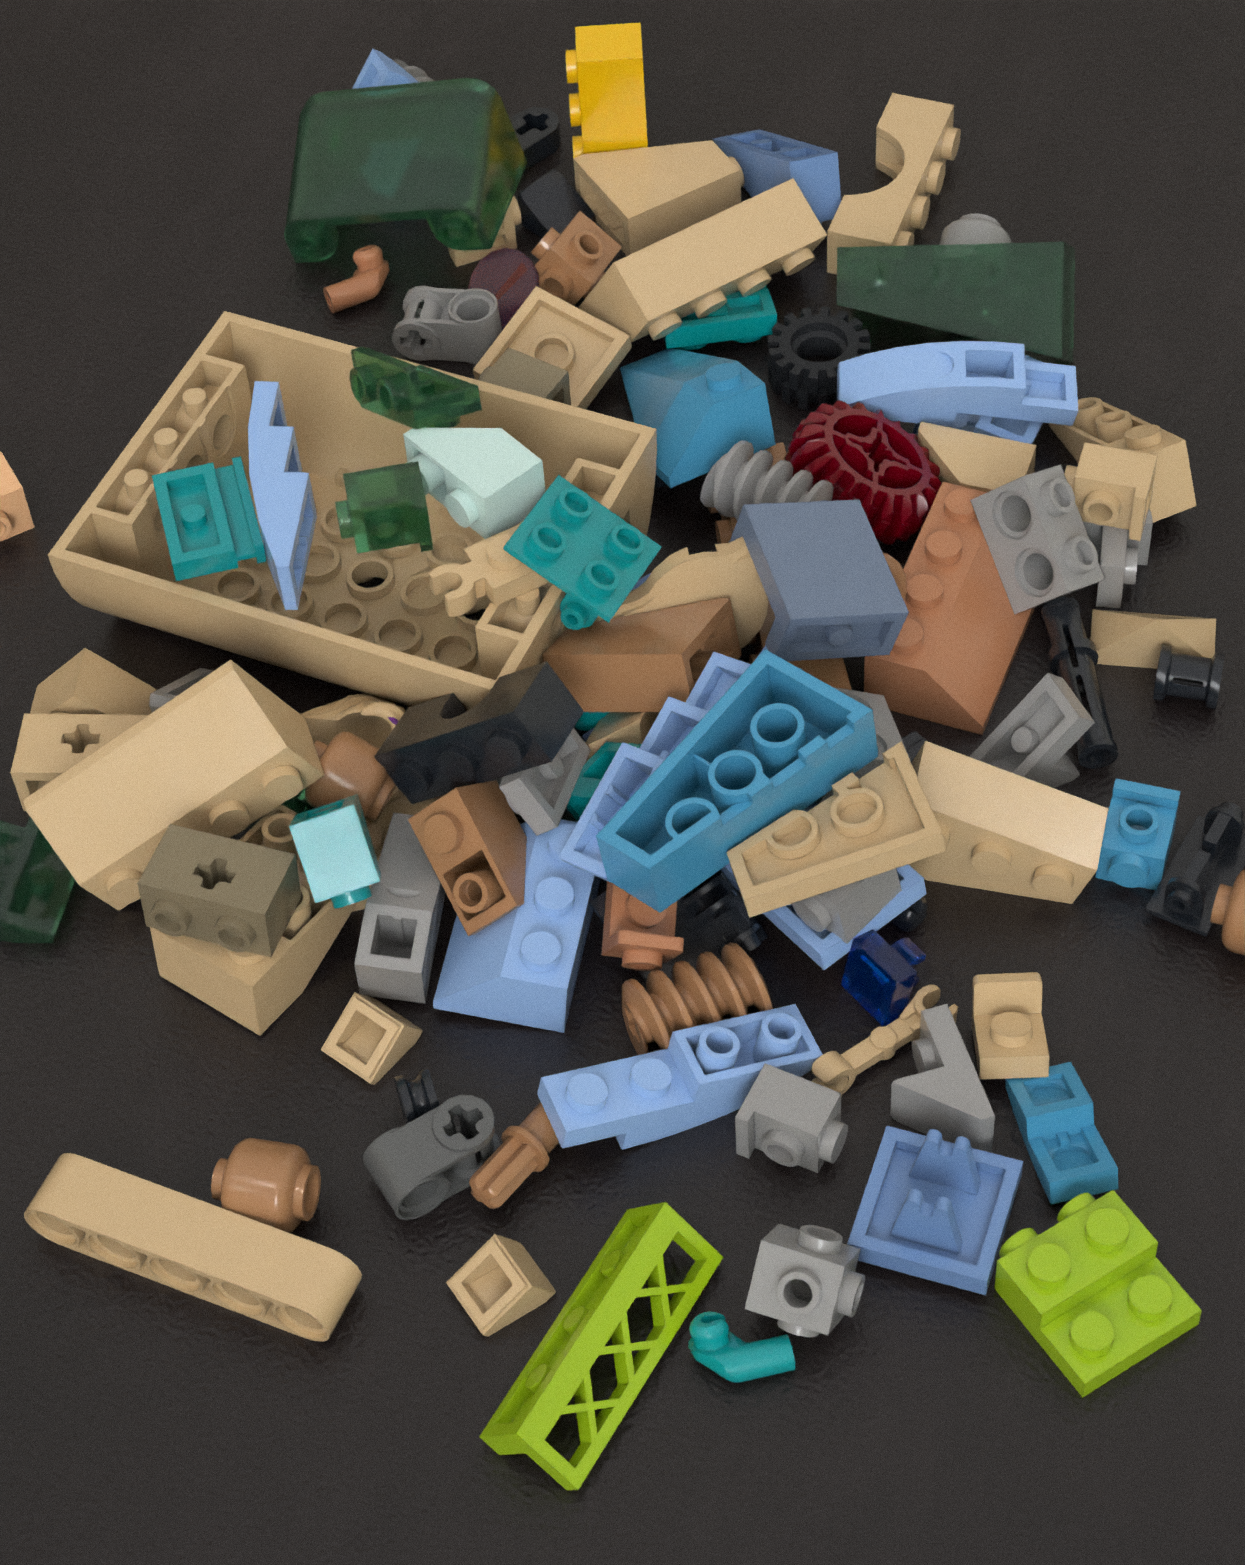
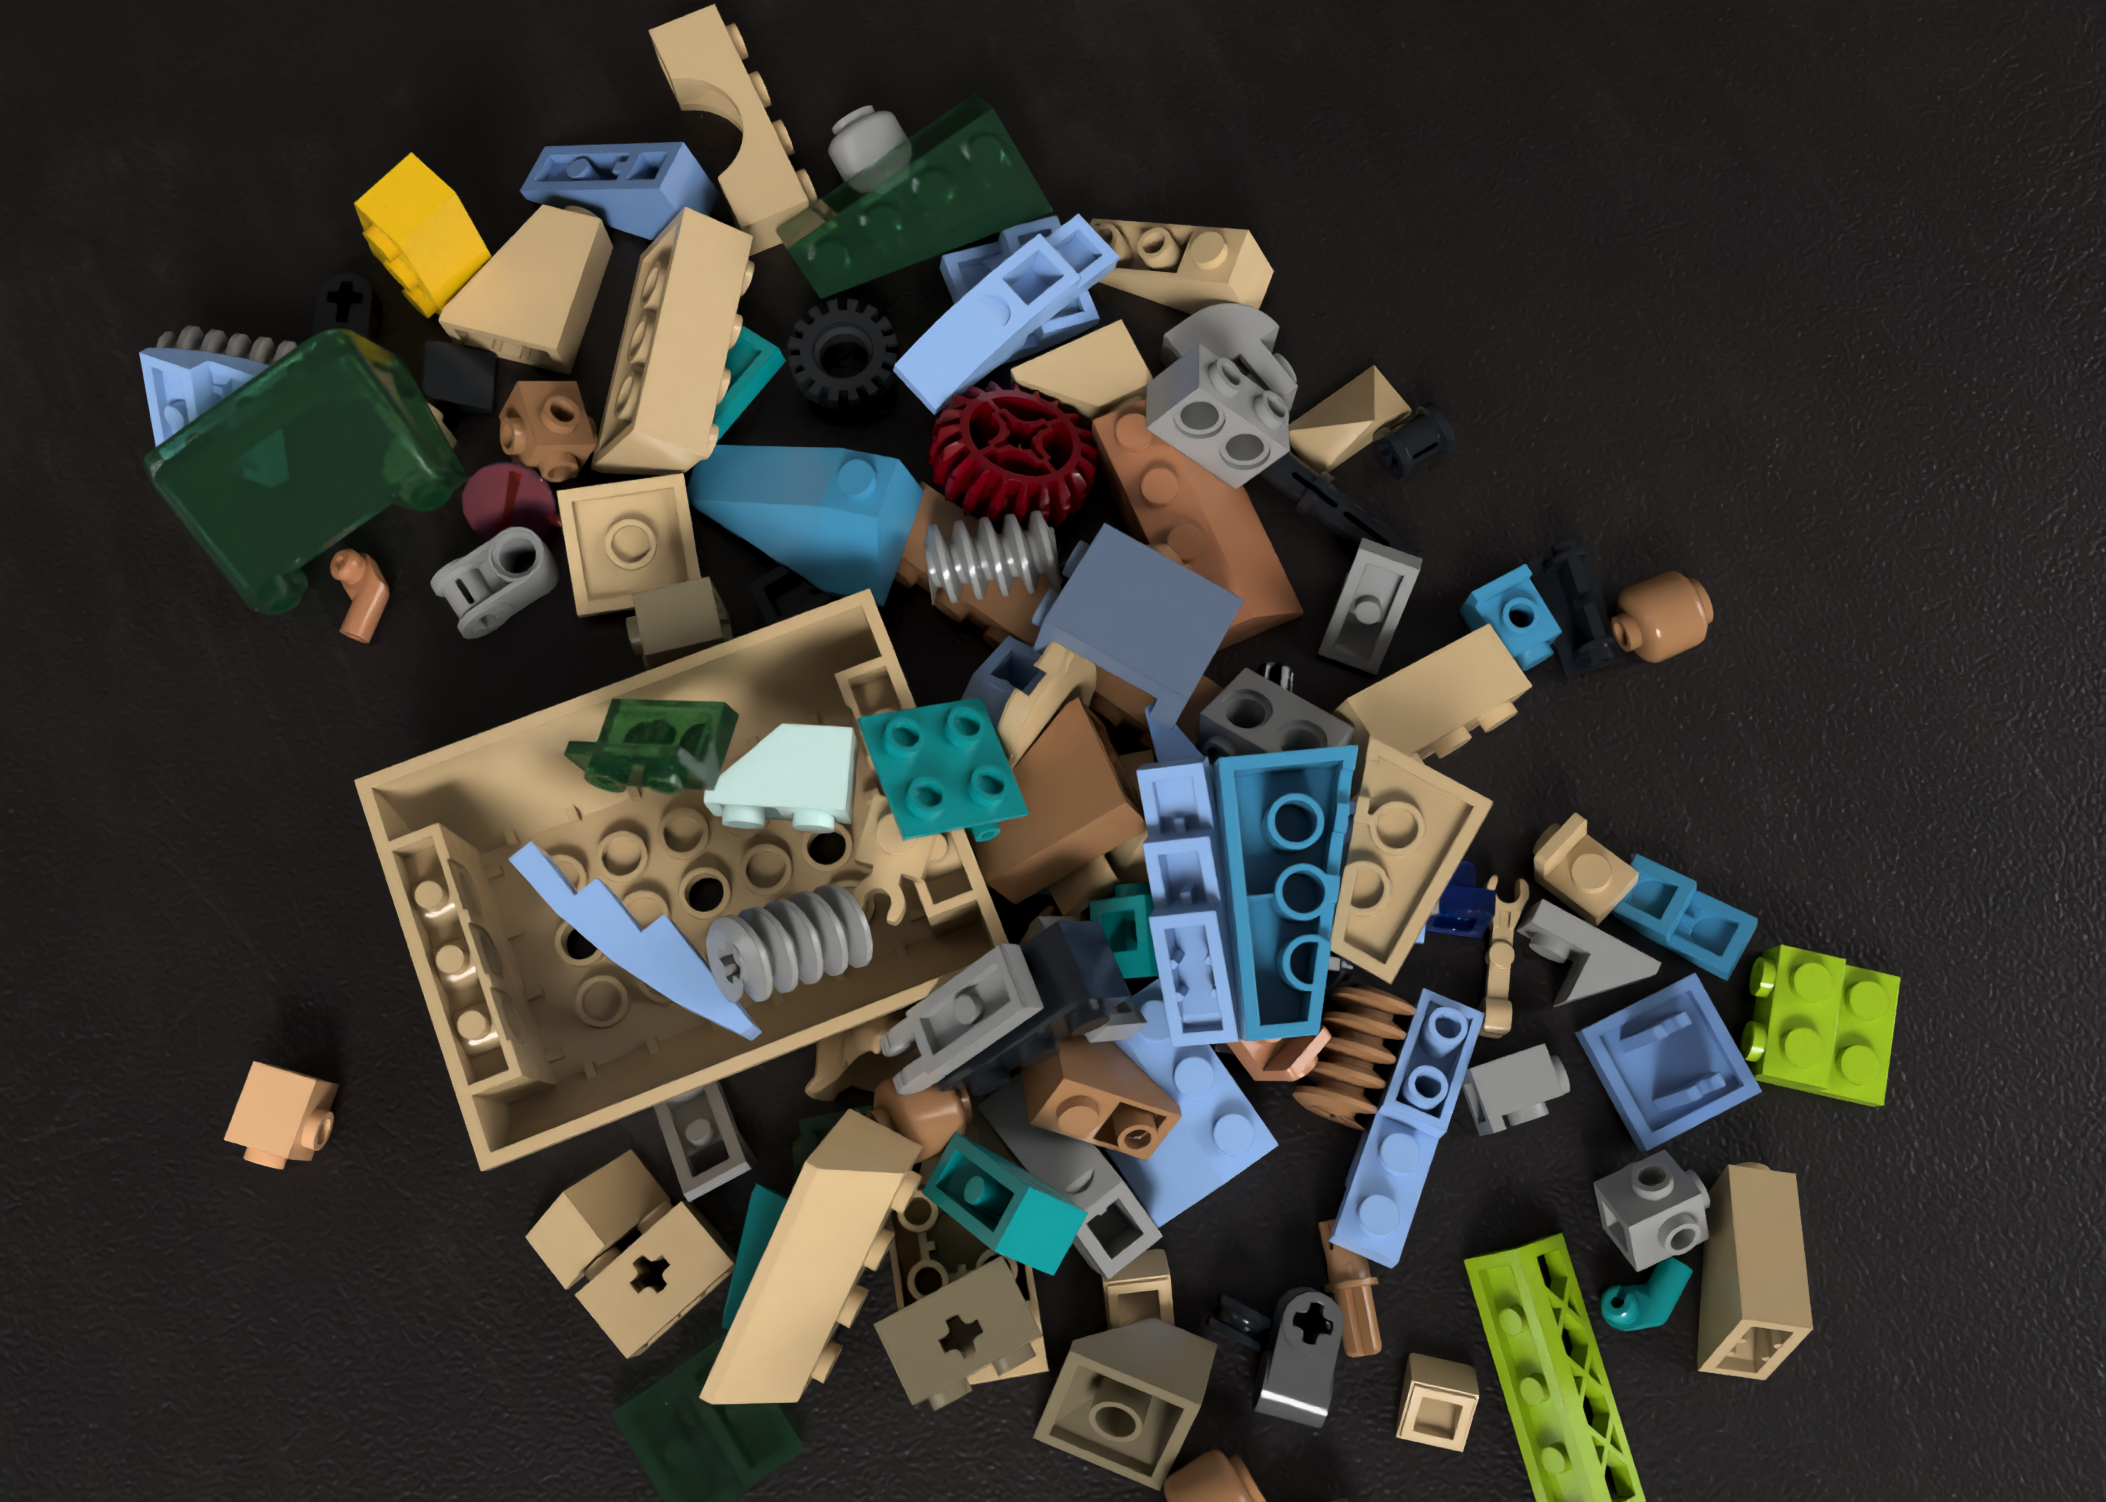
camera: 50 degrees left, 25 degrees up
(208, 519) = (600, 1020): teal plate -> none
(291, 1071) = (1129, 1398): none -> dark tan slope
(365, 540) = (788, 943): none -> light grey piece
(385, 508) = (751, 873): clear green brick -> none
(425, 695) = (963, 1017): none -> light grey hinge
(831, 1389) = (1752, 1274): none -> tan slope
(1113, 487) = (1242, 322): tan brick -> none

